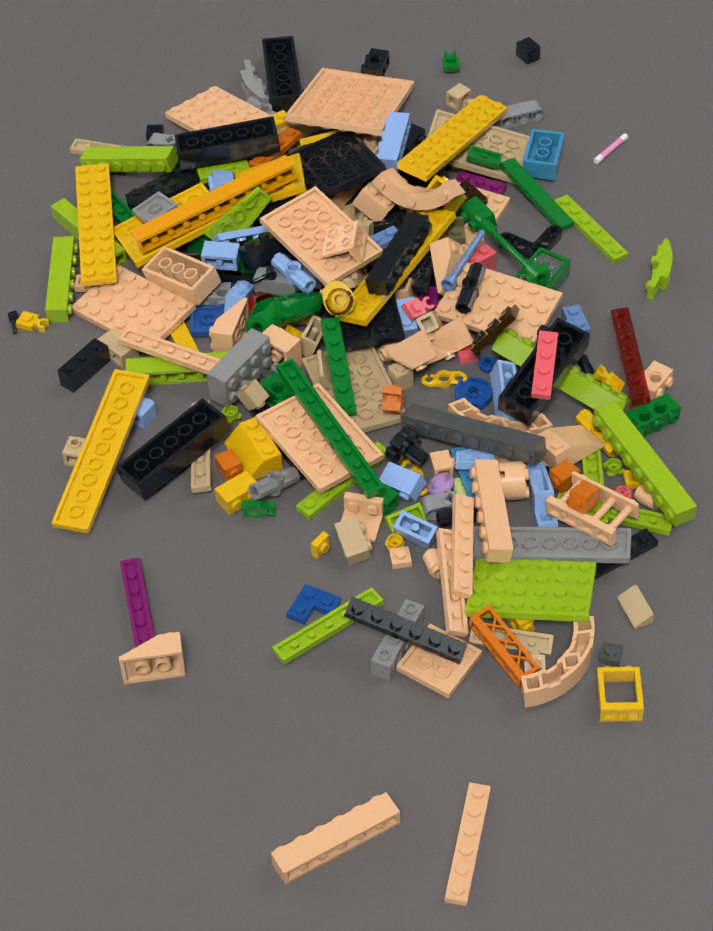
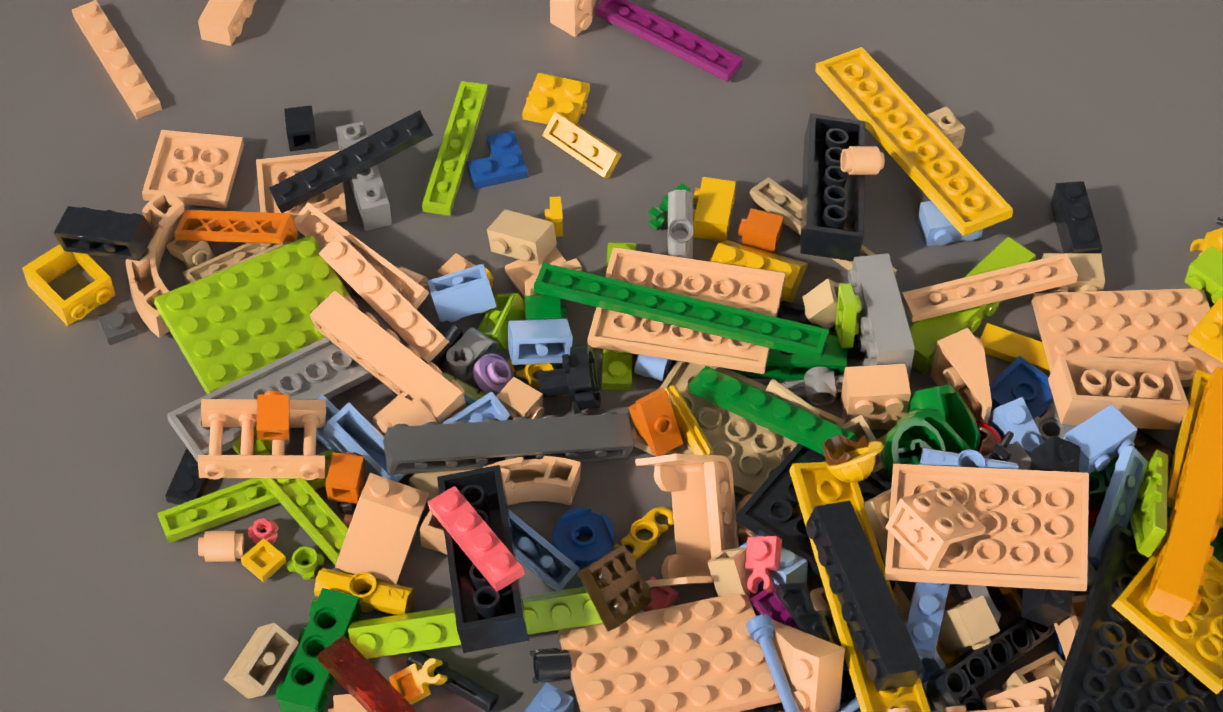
camera: 135 degrees right, 5 degrees up
(154, 431) = (862, 160): none -> light nougat brick
(243, 616) = (553, 95): none -> yellow plate
(256, 369) = (846, 320): none -> lime plate
(261, 576) = (582, 144): none -> yellow plate
(375, 398) = (688, 423): none -> yellow axle
(403, 699) = (300, 128): none -> black brick
(470, 288) = (719, 633): black piece -> none
(488, 720) = (194, 167): none -> light nougat plate
(585, 677) = (104, 233): none -> black brick
(636, 607) = (129, 397): tan slope -> none
(644, 463) = (253, 554): lime brick -> none
(674, 430) = (261, 660): none -> tan brick

